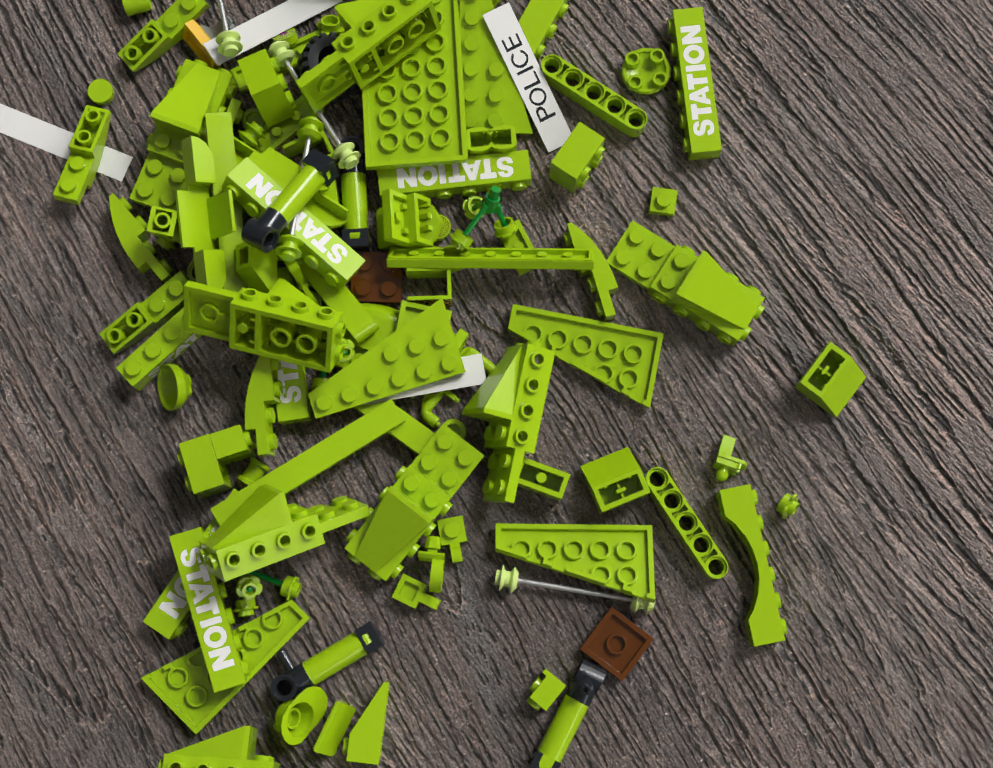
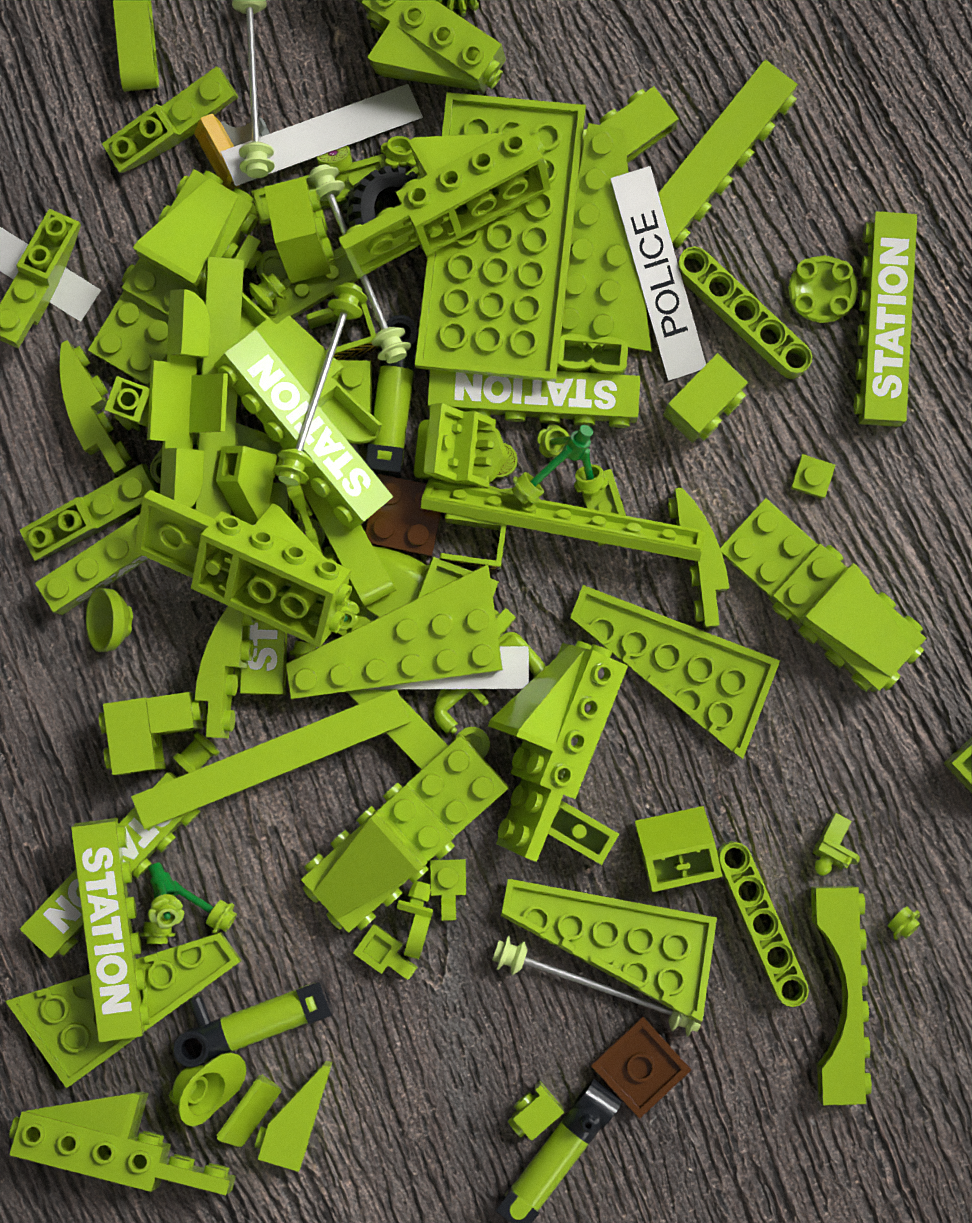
camera: 15 degrees right, 5 degrees up
(101, 92) = (71, 192): lime tile -> none
(265, 230) = (262, 441): piece -> none
(270, 531) = (200, 829): lime wedge -> none

